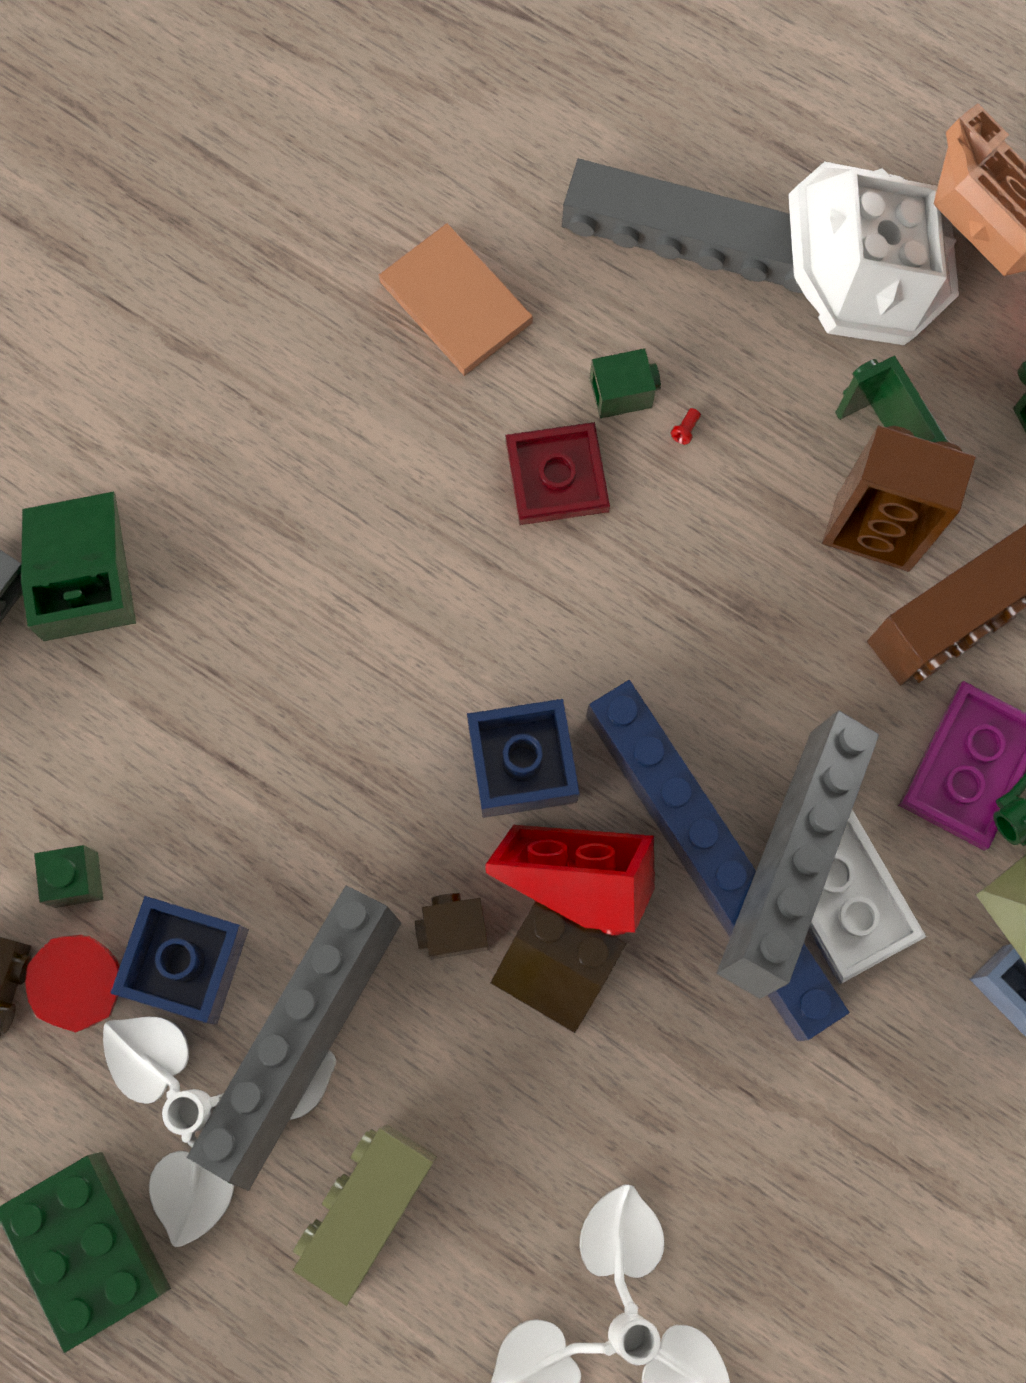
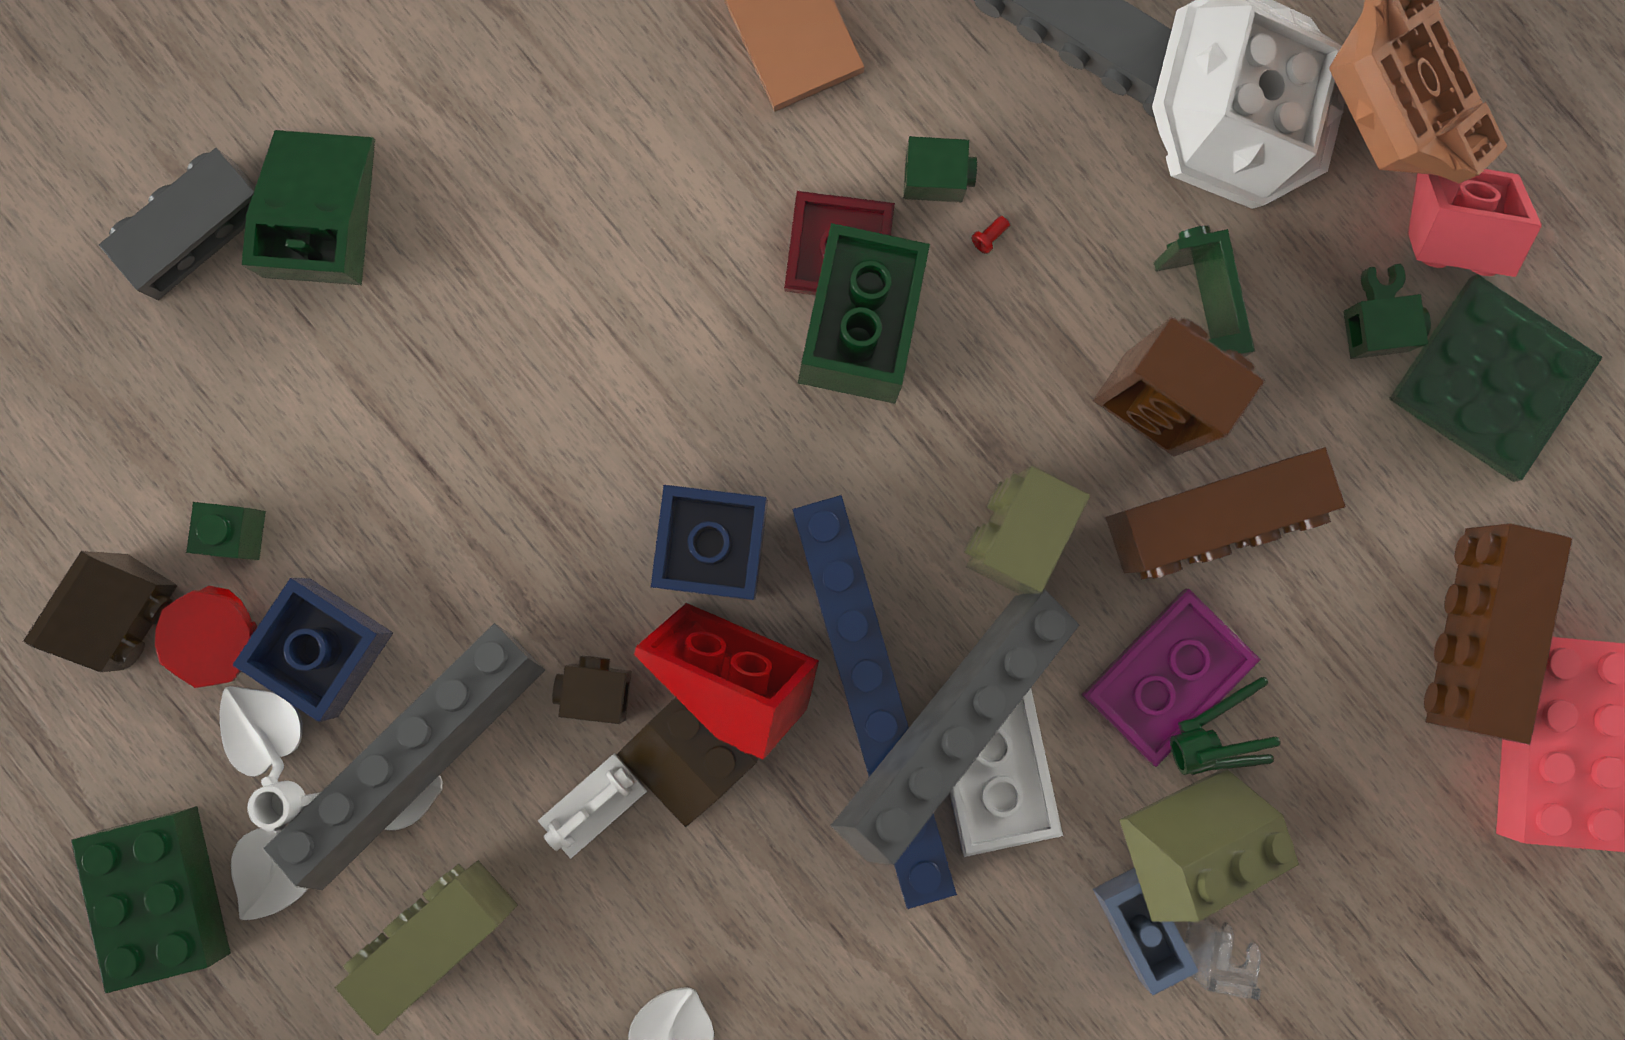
camera: 15 degrees right, 10 degrees up
(481, 1038) = (591, 806): none -> white hinge
(599, 522) = (864, 313): none -> dark green slope
(804, 661) = (1026, 530): none -> olive brick

